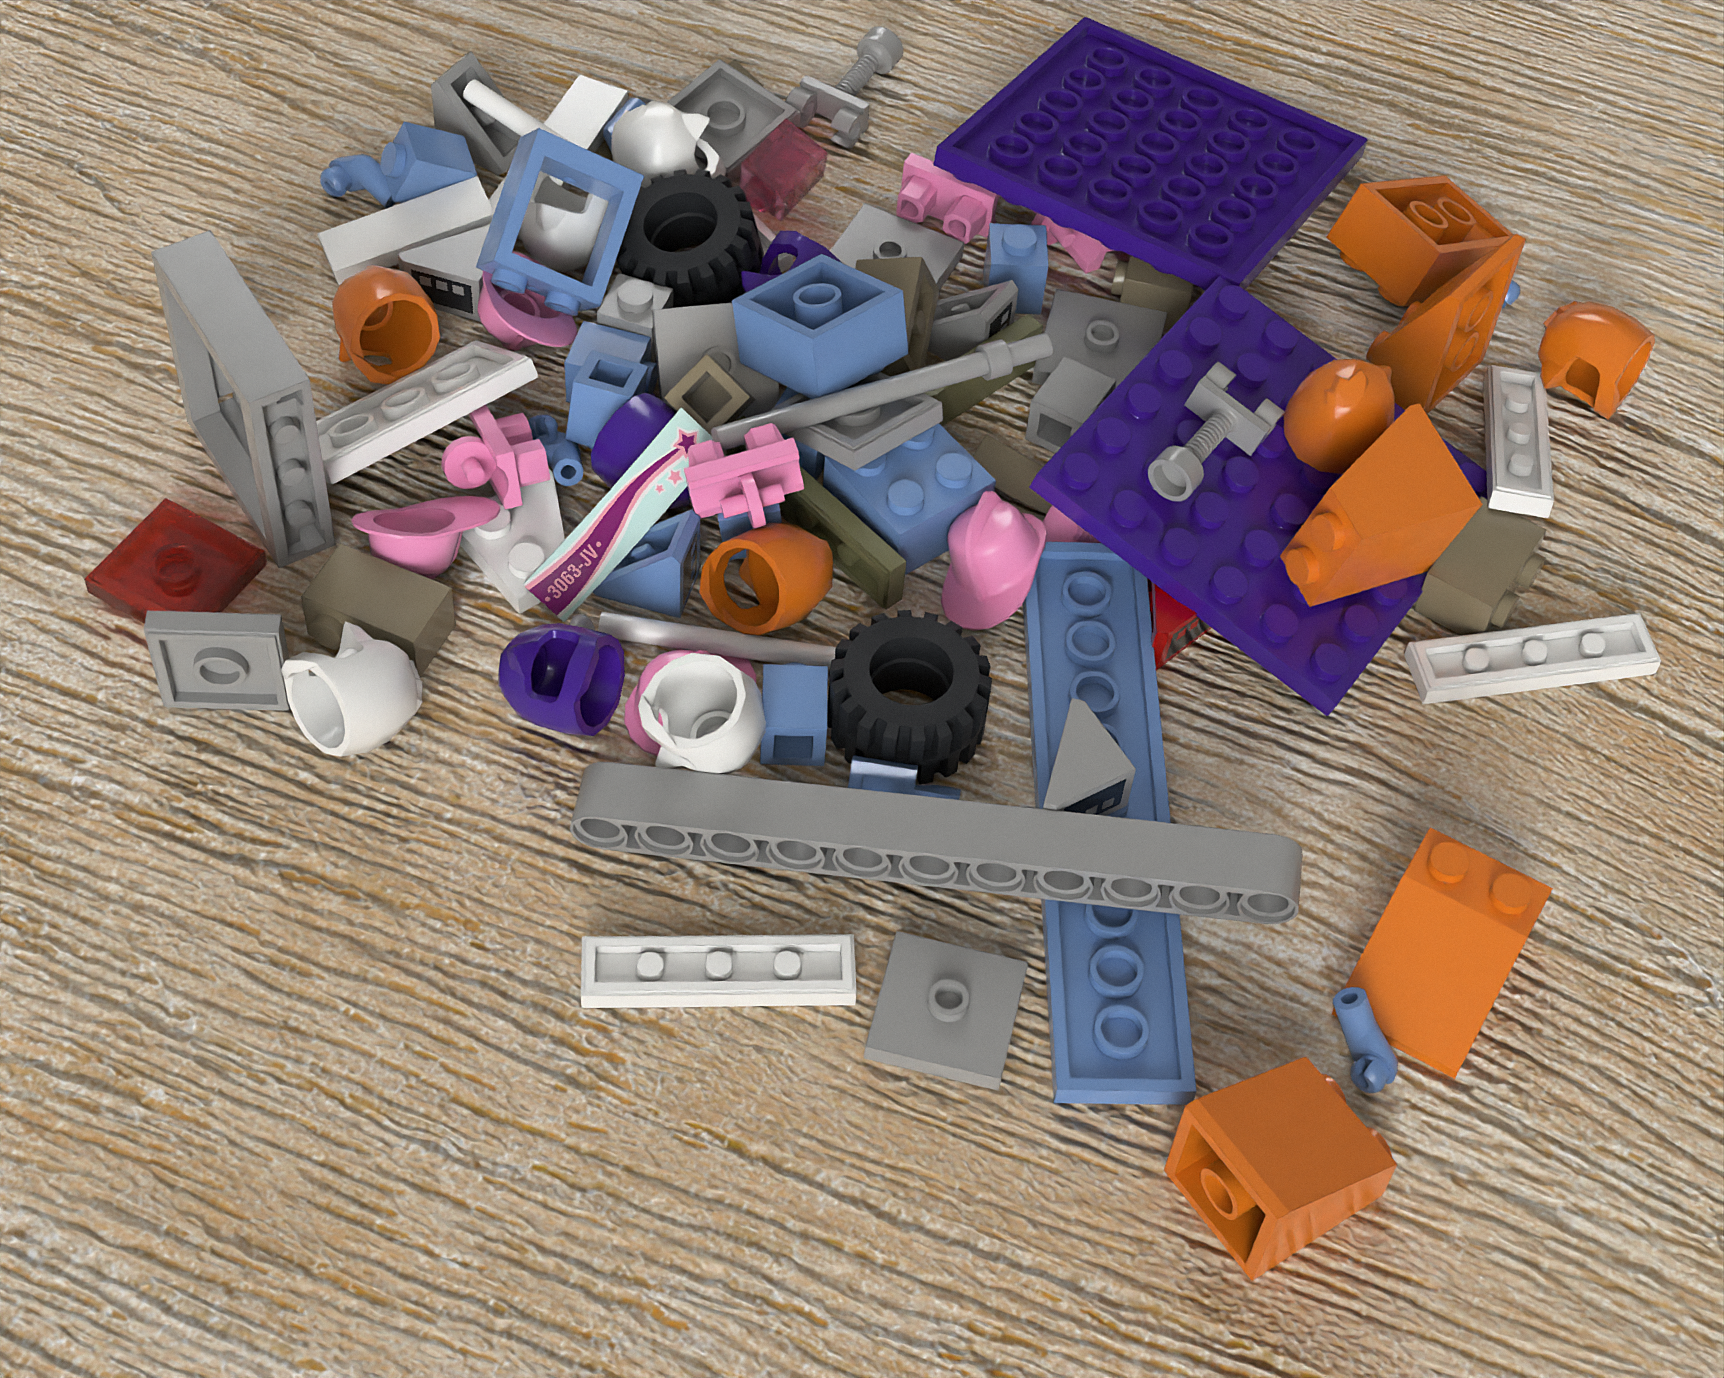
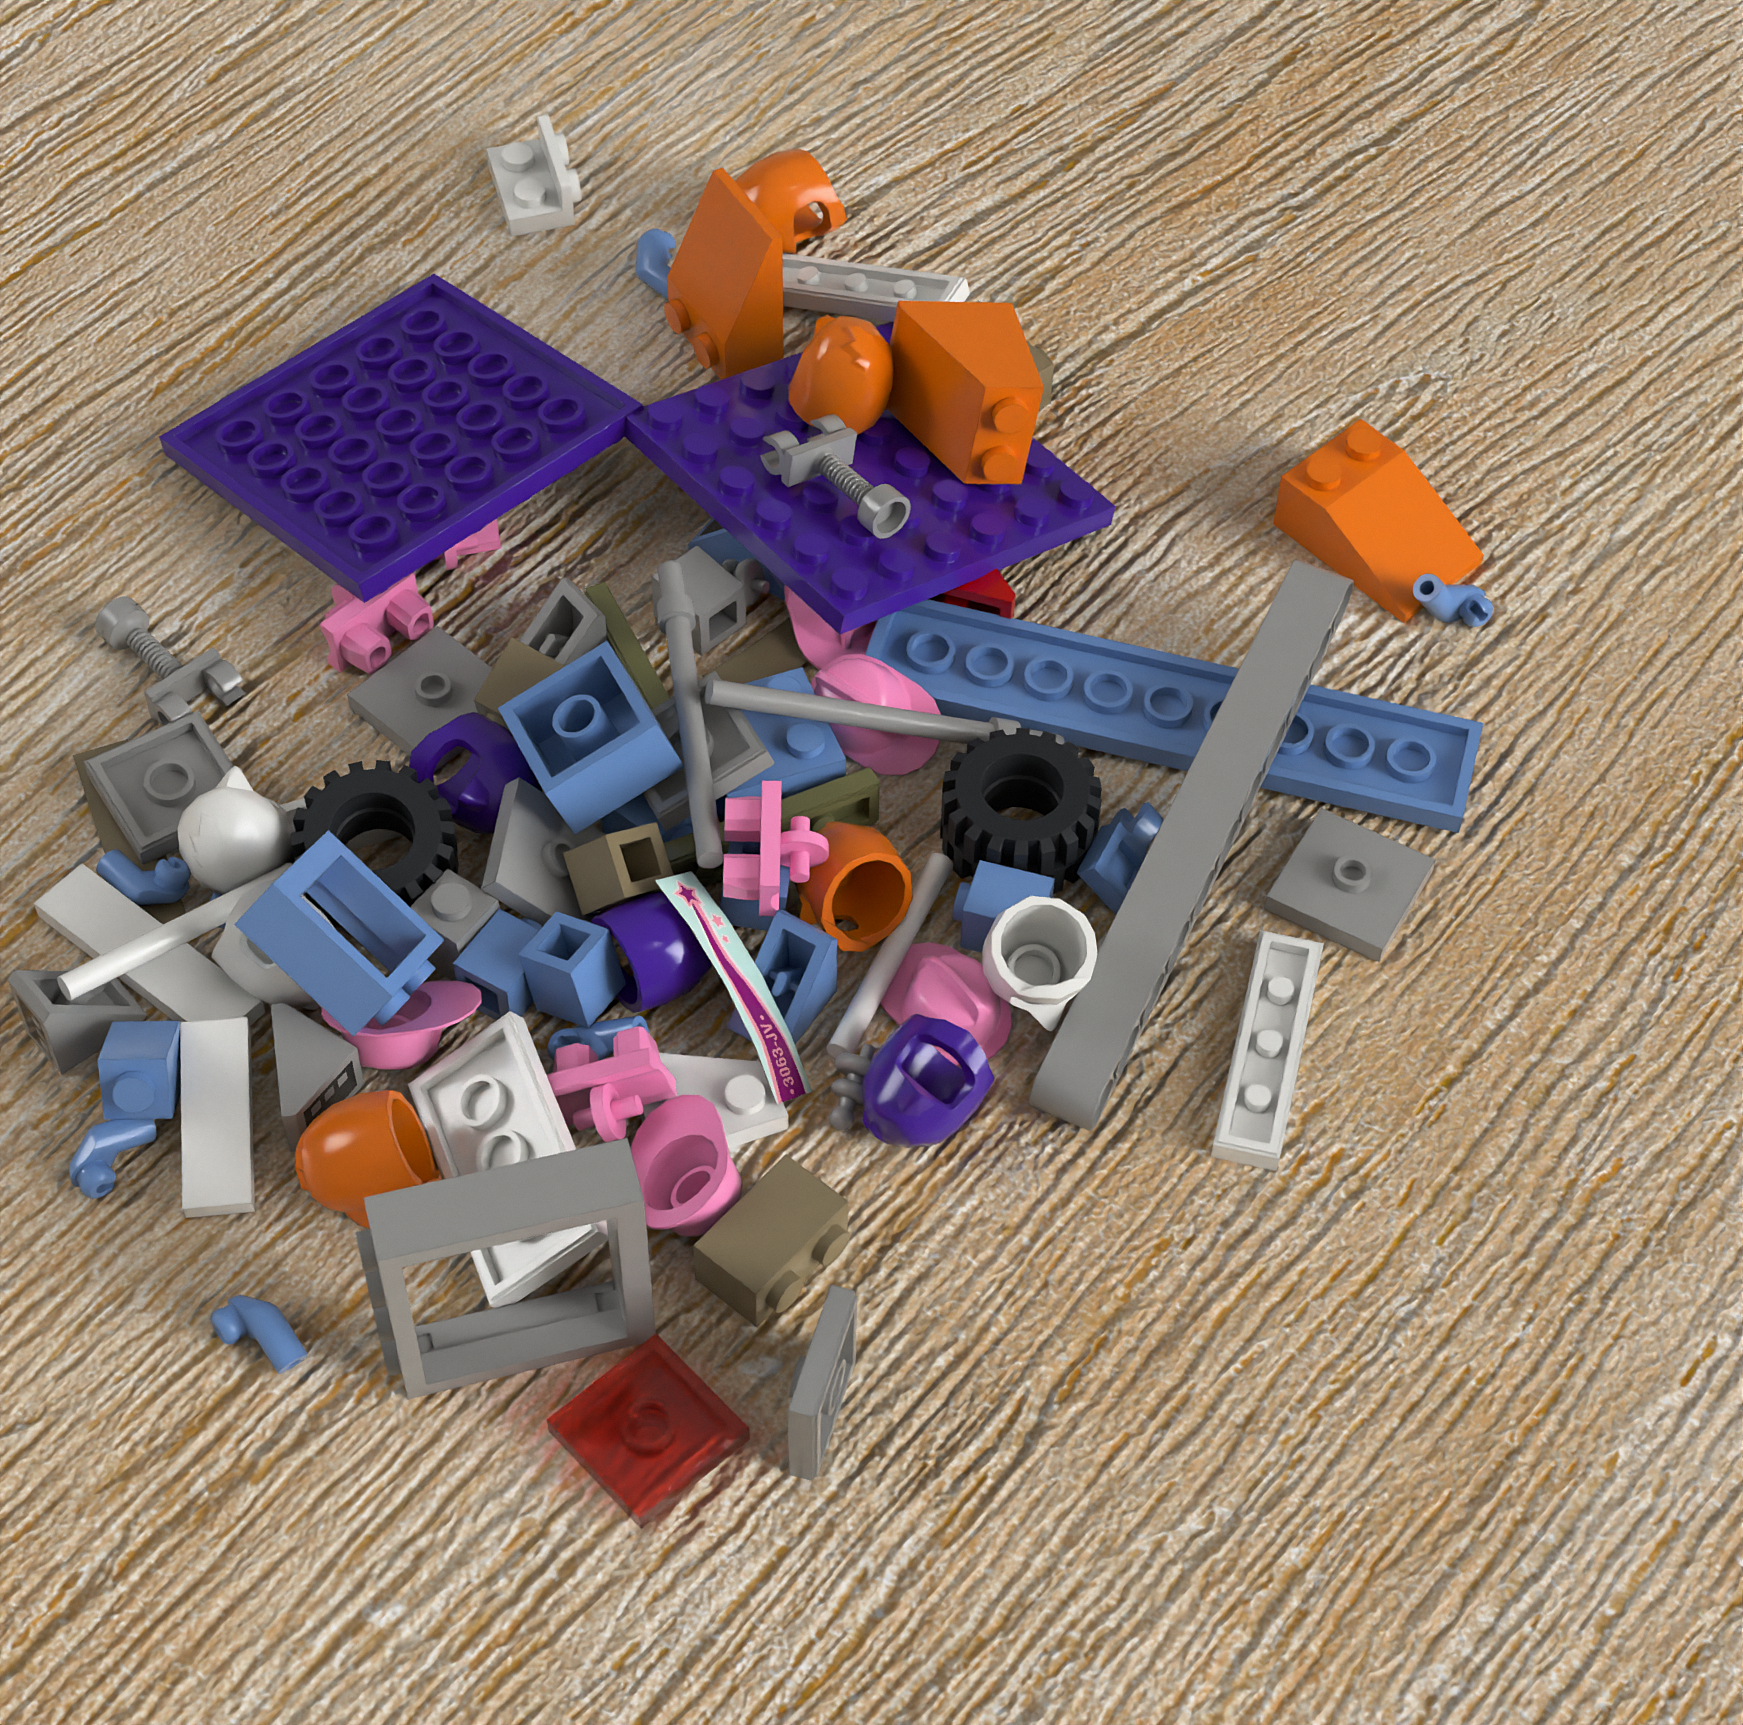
camera: 70 degrees left, 0 degrees up
(356, 697) = (897, 1273): white piece -> none
(782, 170) = (287, 744): clear pink brick -> none
(1005, 665) = (856, 713): none -> light grey bar
(1018, 255) = (500, 590): medium blue brick -> none
(1089, 767) = (1157, 698): light grey slope -> none
(1099, 334) = (614, 548): light grey plate -> none
(1148, 288) = (569, 500): dark tan brick -> none
(1276, 1163) = (1568, 689): orange slope -> none
(1414, 235) = (580, 279): orange slope -> none
(1531, 658) = (1082, 371): white tile -> none
(1533, 185) = (534, 181): none -> white bracket

